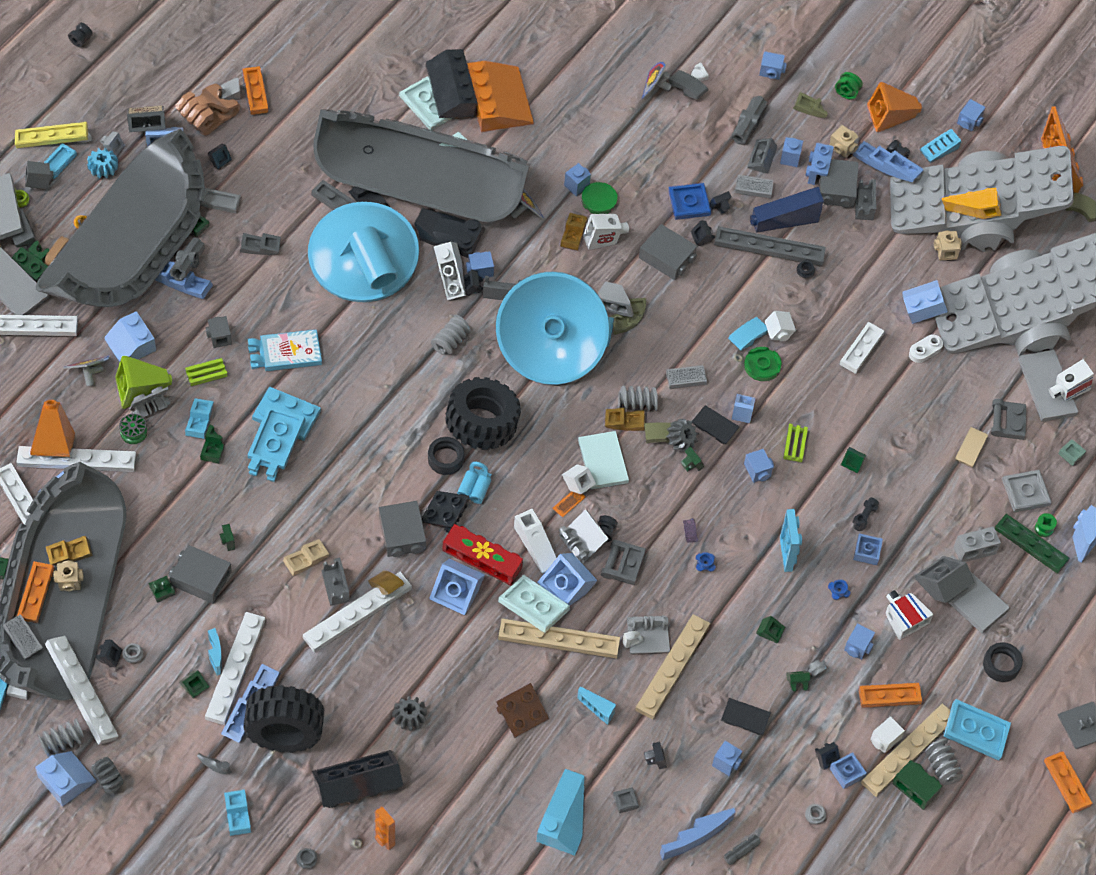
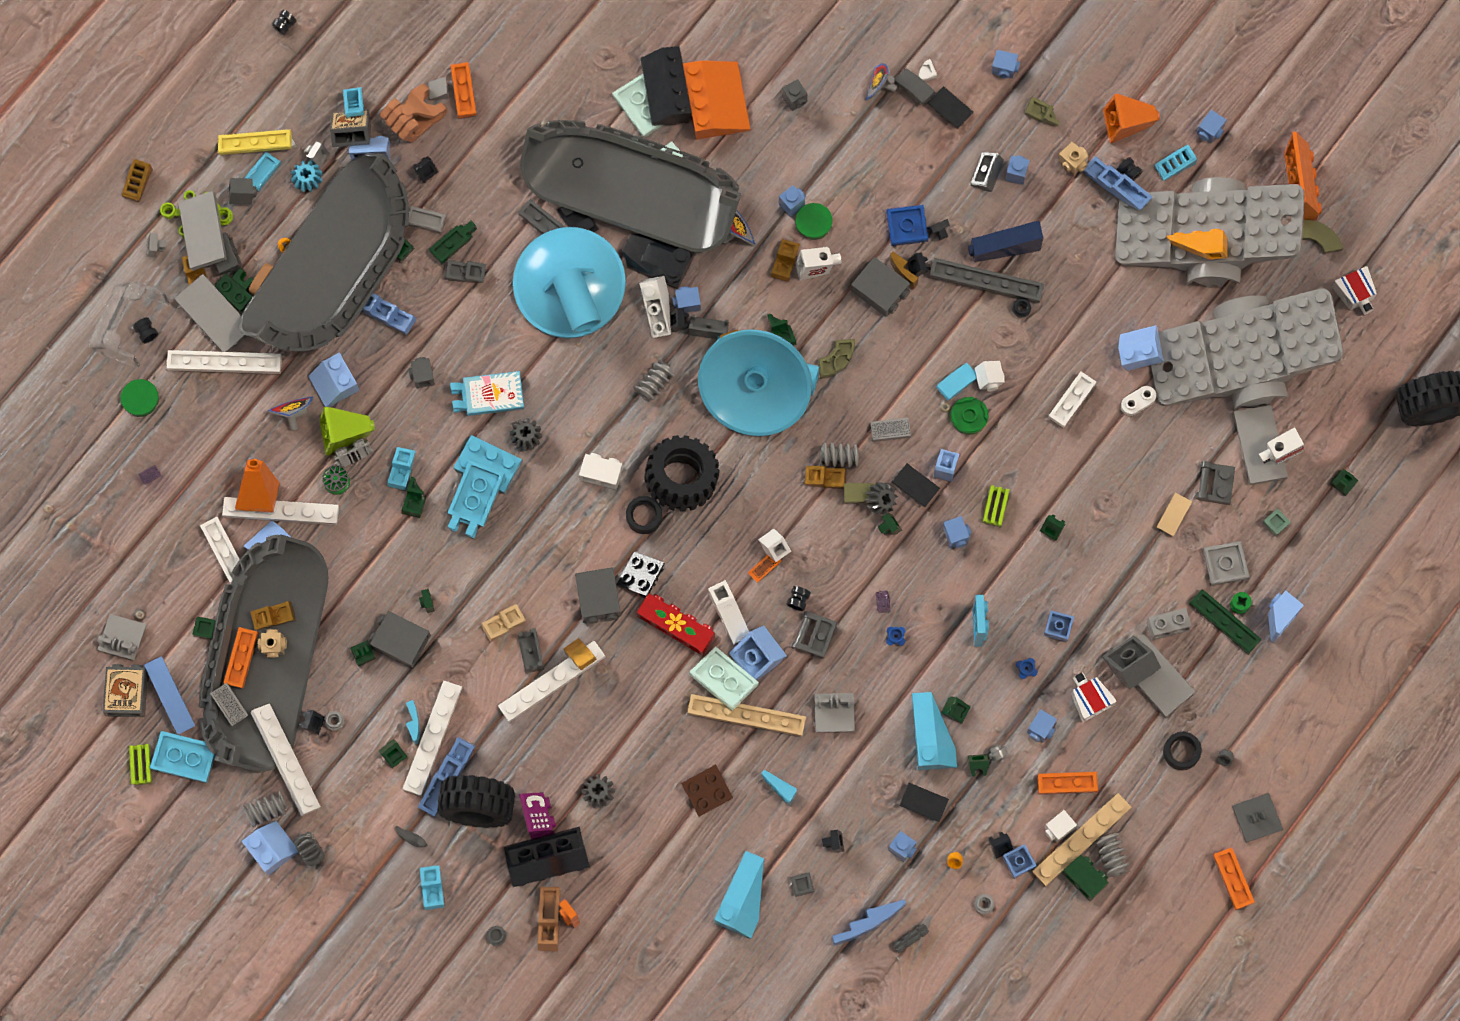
camera: 10 degrees right, 15 degrees up
(148, 97) = (353, 102): none -> medium azure slope
(187, 259) = (391, 292): dark grey piece -> none
(205, 370) = (392, 414): lime tile -> none
(247, 218) = (452, 242): none -> dark green hinge
(324, 384) = (532, 437): none -> dark grey gear
(346, 735) = (536, 814): none -> magenta slope
(362, 840) = (549, 919): none -> medium nougat slope
(401, 416) = (601, 471): none -> white brick
(456, 586) = (649, 657): light blue slope -> none
(475, 483) = (671, 547): medium azure piece -> none
(574, 91) = (794, 95): none -> dark grey brick
(583, 536) = (775, 608): hinge -> none
(604, 459) = (801, 521): light aqua tile -> none
(615, 299) = (820, 342): light grey slope -> none
(632, 638) = (818, 718): white tile -> none
(672, 667) = (856, 746): tan plate -> none
(686, 232) = (900, 267): none -> pearl gold slope
(723, 101) = (950, 107): none -> black piece
(749, 119) = (975, 129): dark grey piece -> none
(749, 658) = (932, 737): none -> medium azure wedge
(754, 186) = (975, 208): light grey tile -> none
(778, 772) = (953, 862): none -> light orange hinge
(820, 162) = (1046, 184): medium blue bracket -> none
(840, 184) = (1063, 207): dark grey brick -> none
(848, 85) = (1084, 90): green wheel -> none
(860, 521) = (1054, 594): black bar -> none
(865, 201) = (1090, 228): dark grey hinge -> none
(947, 245) = (1171, 283): tan brick -> none
(977, 729) = (1149, 822): medium azure plate -> none
(1041, 669) = (1225, 753): none -> dark grey hinge

